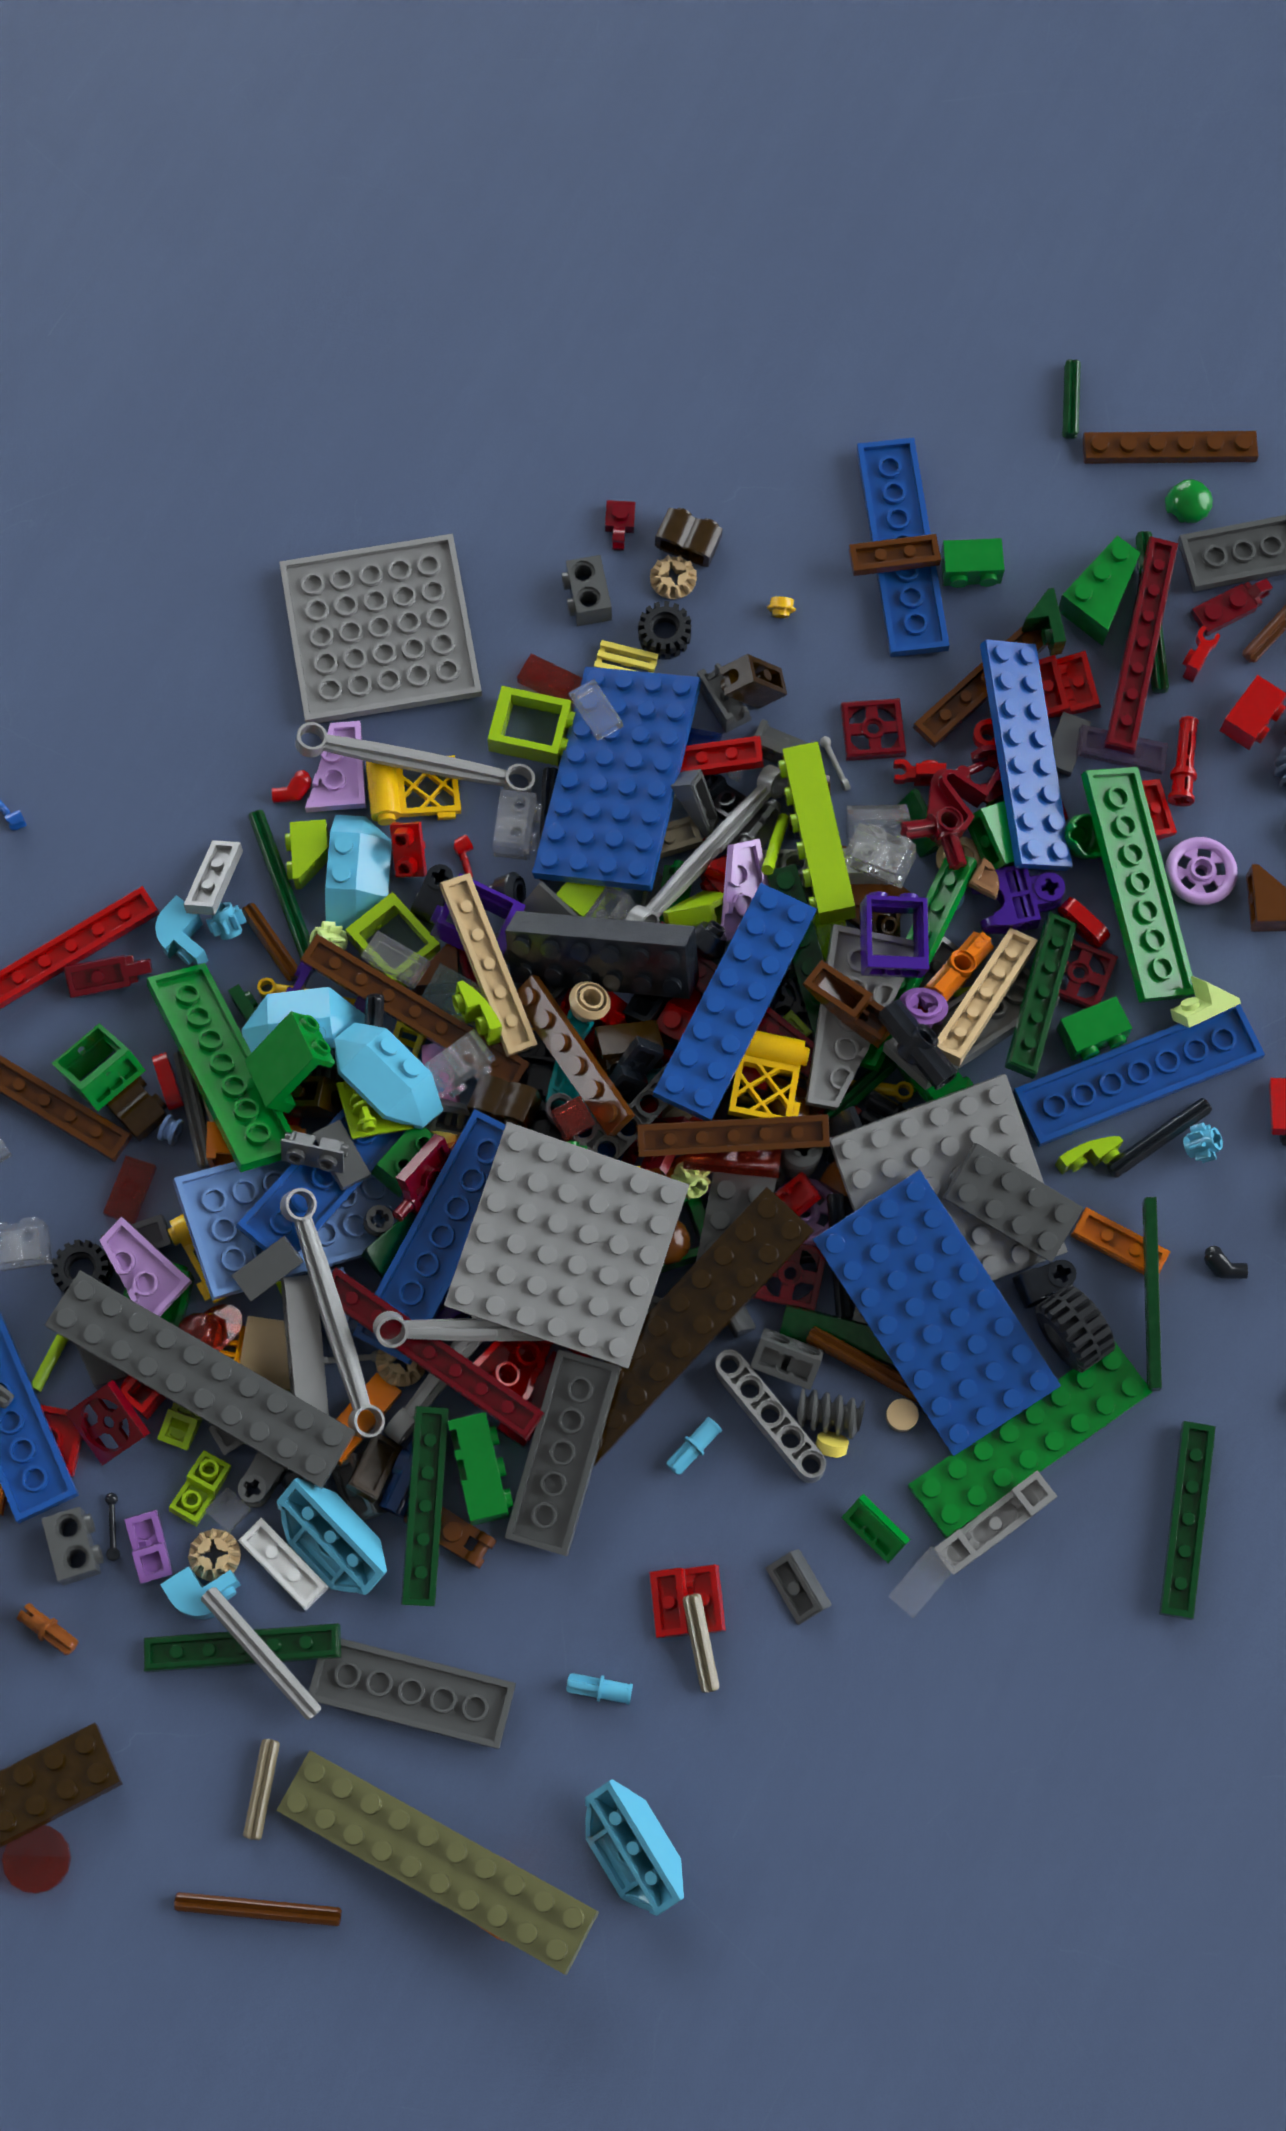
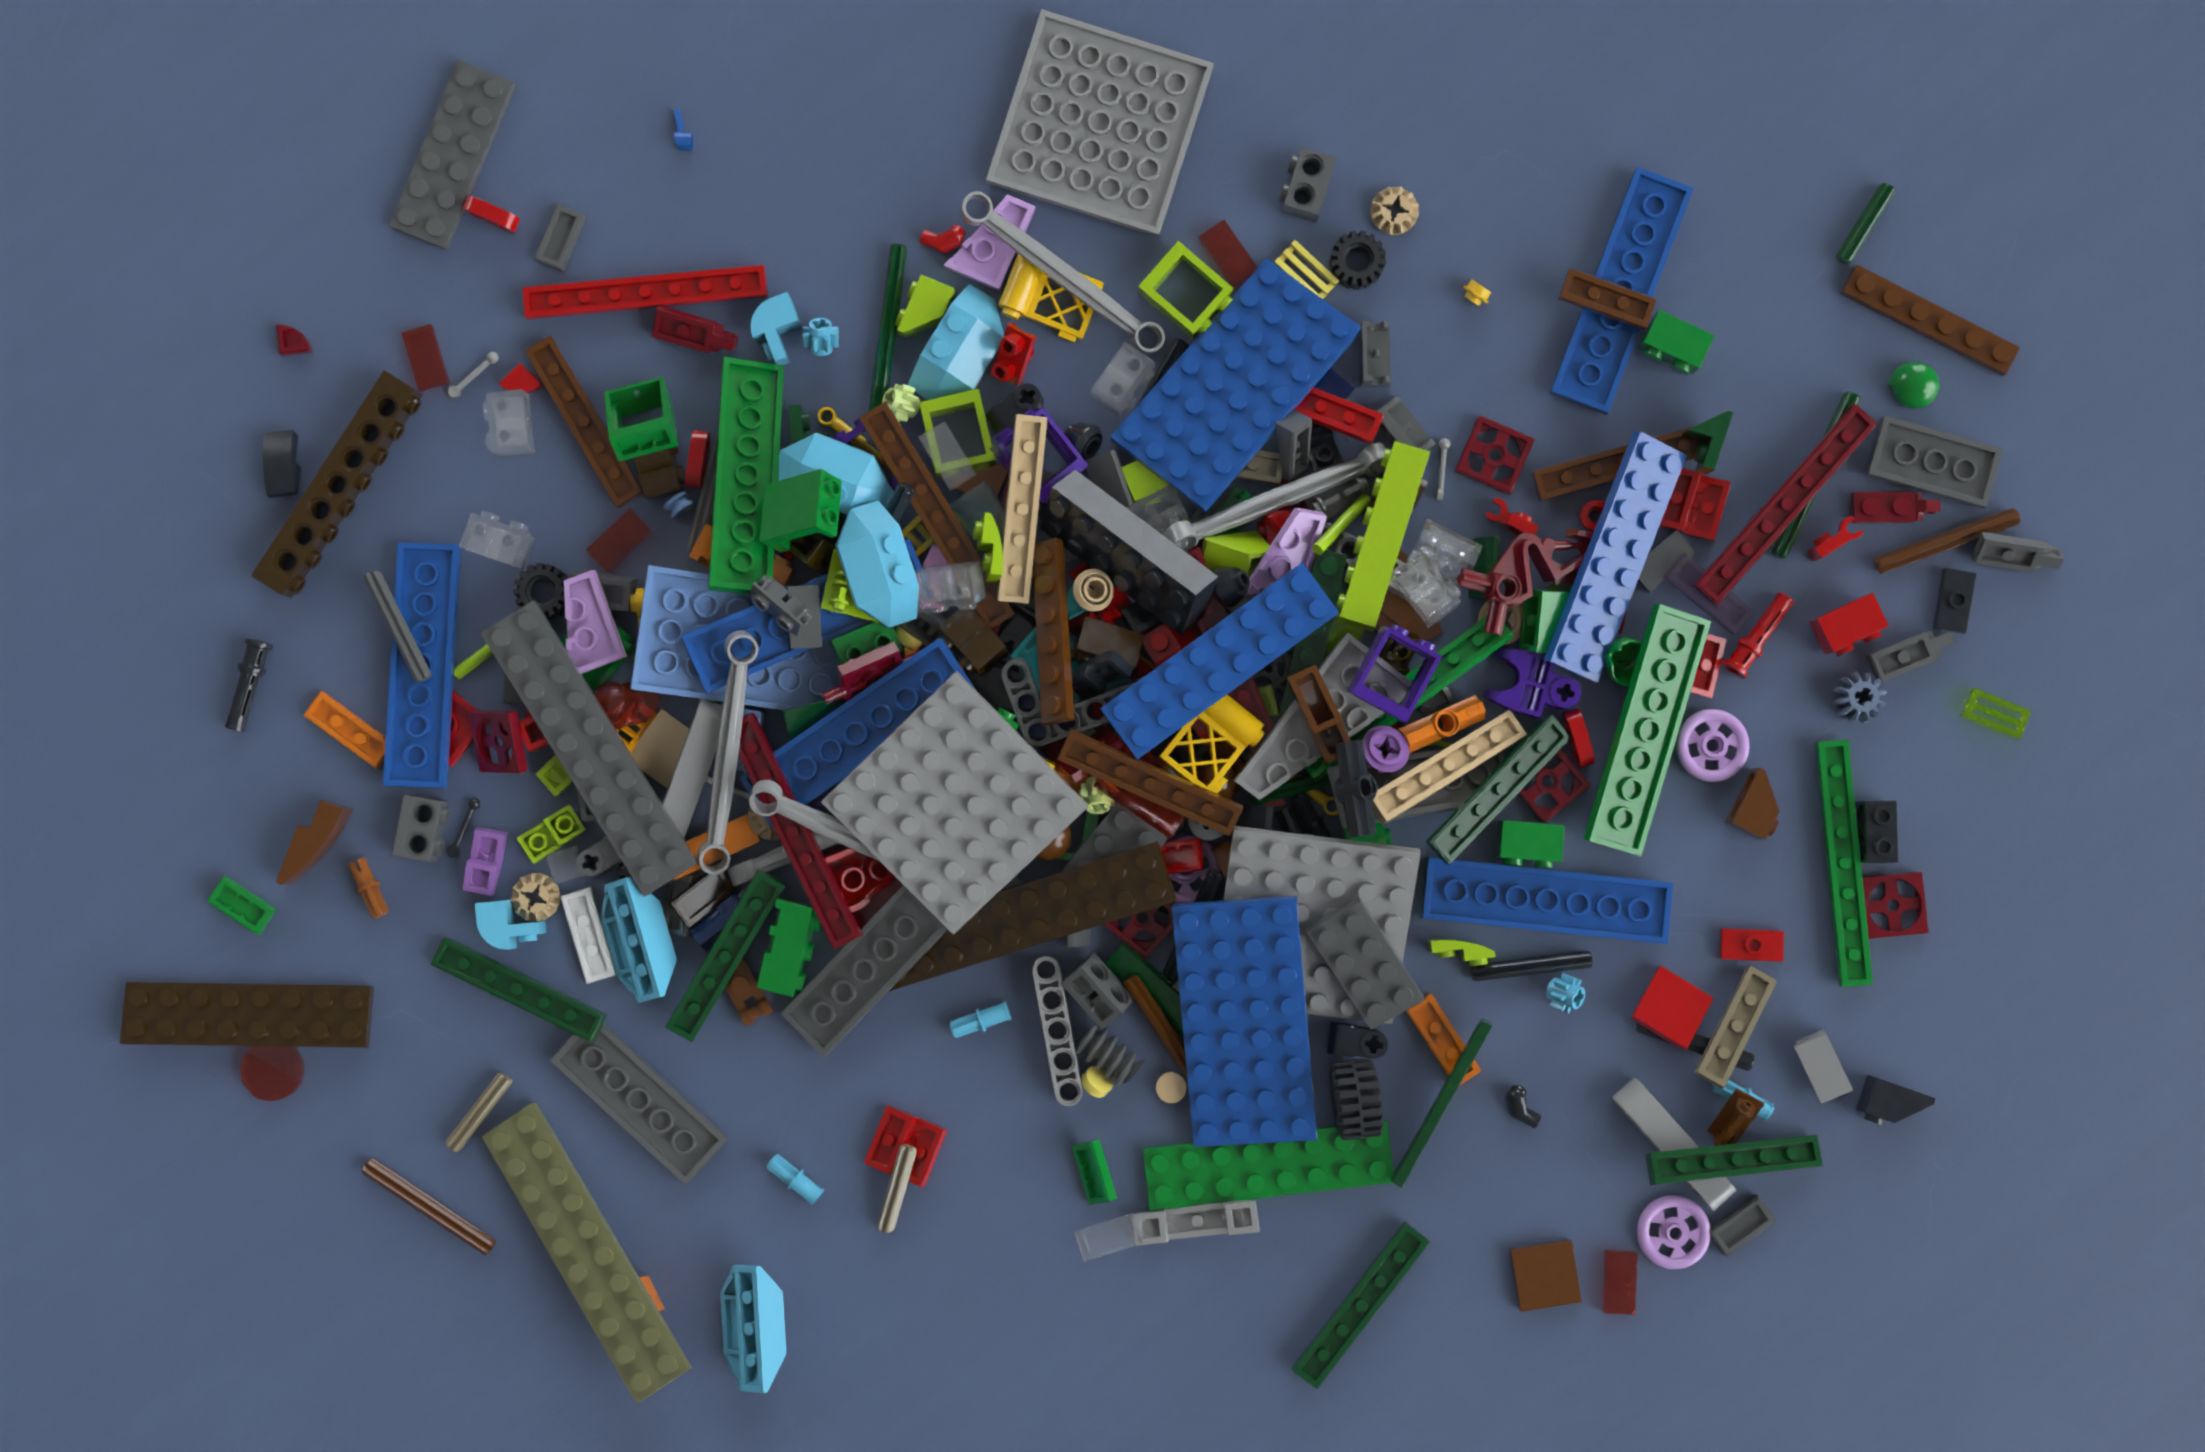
camera: 35 degrees right, 15 degrees up
(213, 877) = (828, 291): light grey plate -> none
(261, 1653) = (528, 1006): light grey axle -> none
(267, 1268) = (688, 689): dark grey tile -> none
(270, 941) = (851, 374): reddish brown axle -> none
(385, 1213) = (807, 679): dark grey bush -> none
(461, 847) = (1065, 374): red hand -> none
(572, 1118) = (1018, 694): clear red brick -> none
(595, 709) = (1250, 310): clear tile -> none
(619, 520) = (1376, 128): dark red plate -> none
(688, 536) = (1429, 178): dark brown brick -> none
(752, 681) = (1403, 352): dark brown brick -> none
(798, 1586) = (1005, 1183): dark grey slope -> none
(985, 879) = (1511, 656): medium nougat tile -> none
(1098, 591) = (1777, 432): green wedge -> none
(1207, 1003) = (1644, 872): yellowish green slope -> none

